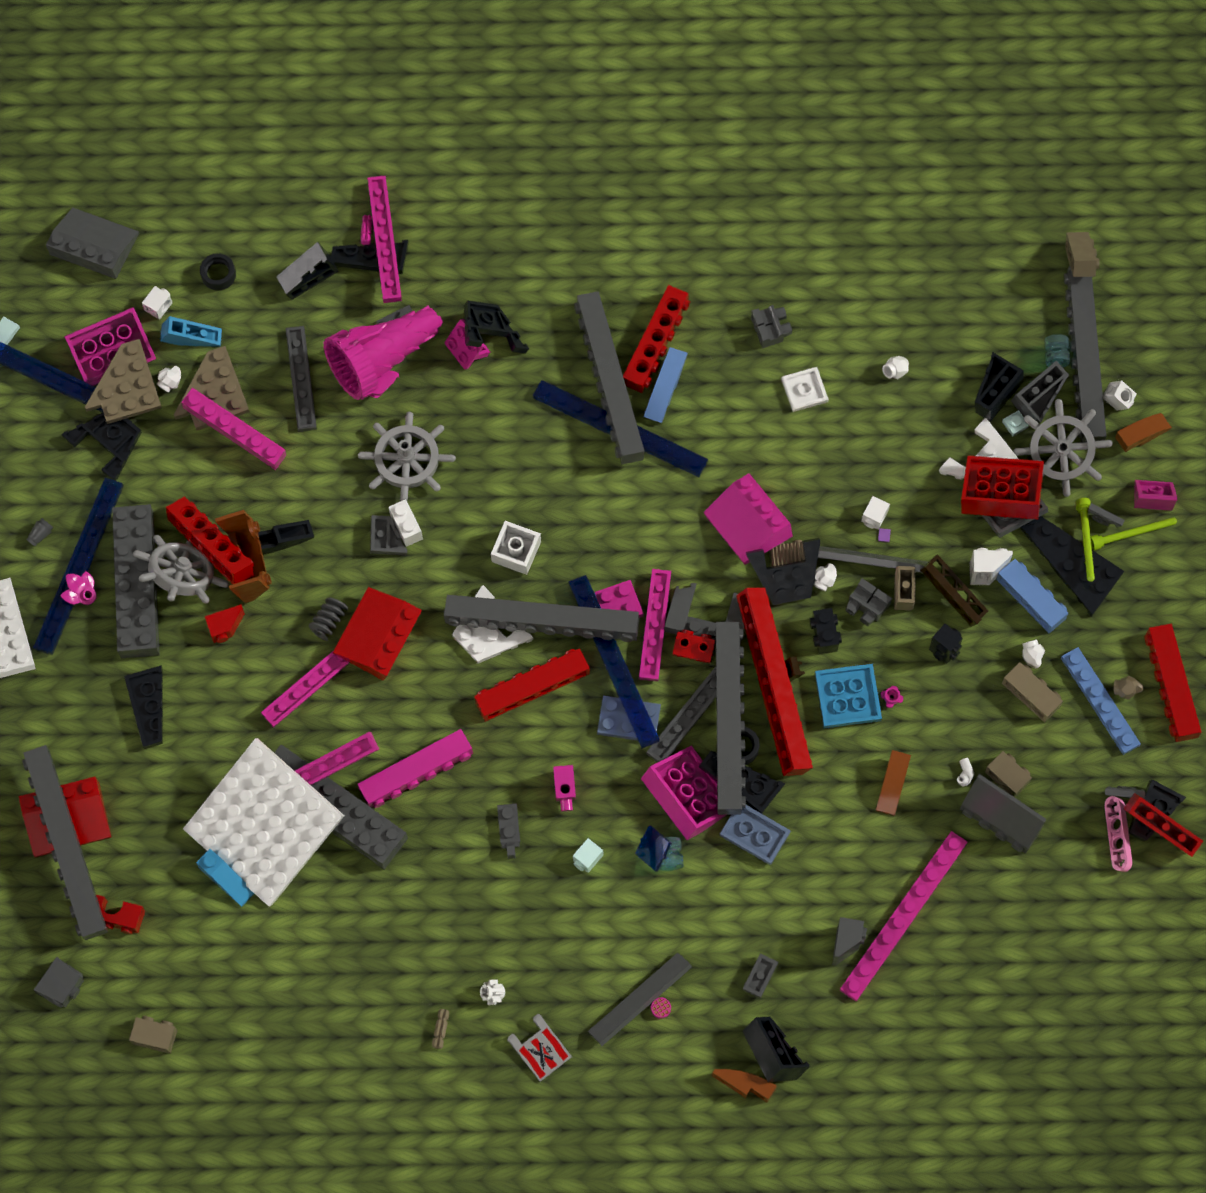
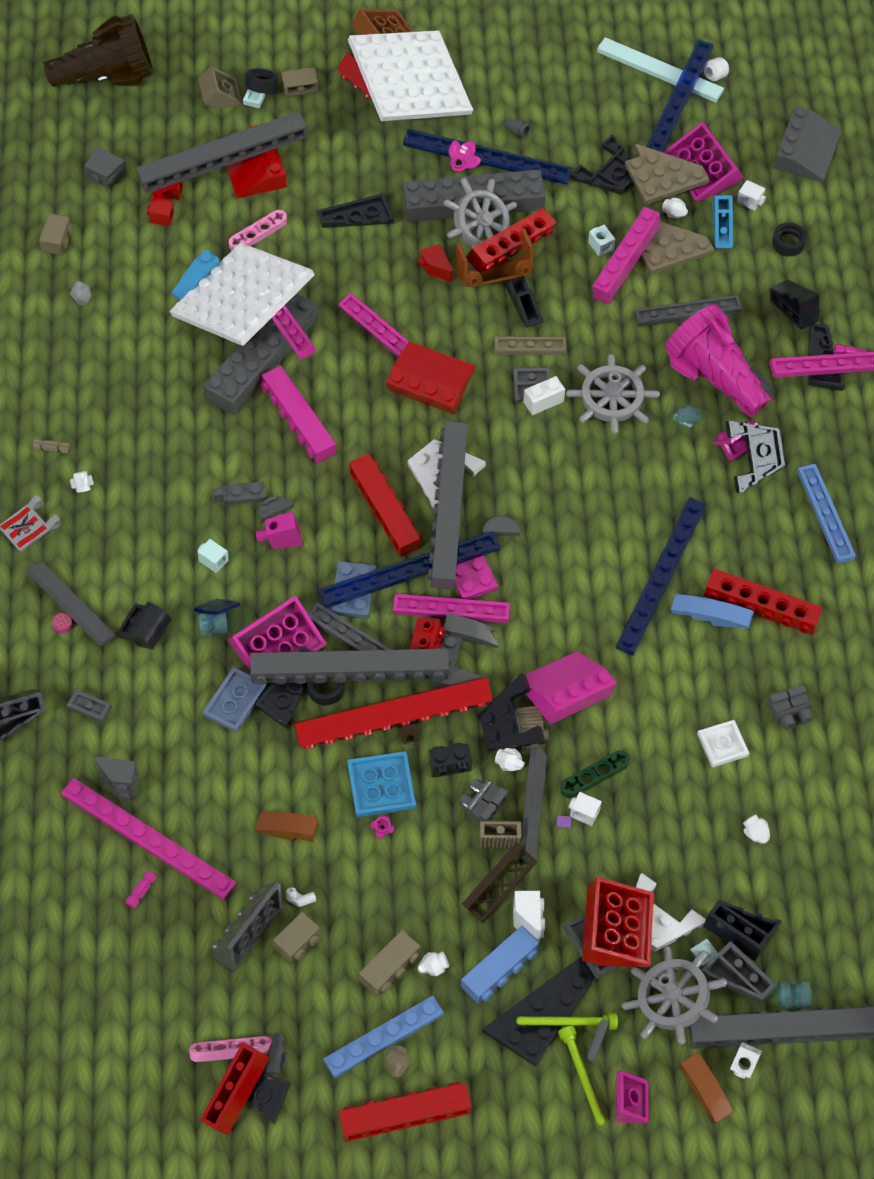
camera: 85 degrees right, 10 degrees down
(163, 812) = (260, 233): none -> bright pink beam
(209, 448) = (601, 240): none -> light aqua brick
(239, 1002) = (81, 293): none -> light grey rock
(326, 617) = (444, 339): dark grey piece -> none
(336, 535) = (529, 345): none -> dark tan tile
(437, 388) = (687, 415): none -> clear light blue rock
(516, 547) = (523, 484): white brick -> none
(527, 797) = (274, 506): none -> dark grey tile
(556, 273) = (826, 513): none -> medium blue plate
(559, 574) = (501, 526): none -> dark grey tile
(609, 377) = (718, 555): dark grey brick -> none
(669, 923) = (144, 625): none -> black brick
(833, 505) = (593, 772): none -> dark green beam
(946, 644) = (437, 872): black brick -> none
(958, 920) = (140, 889): none -> dark pink axle

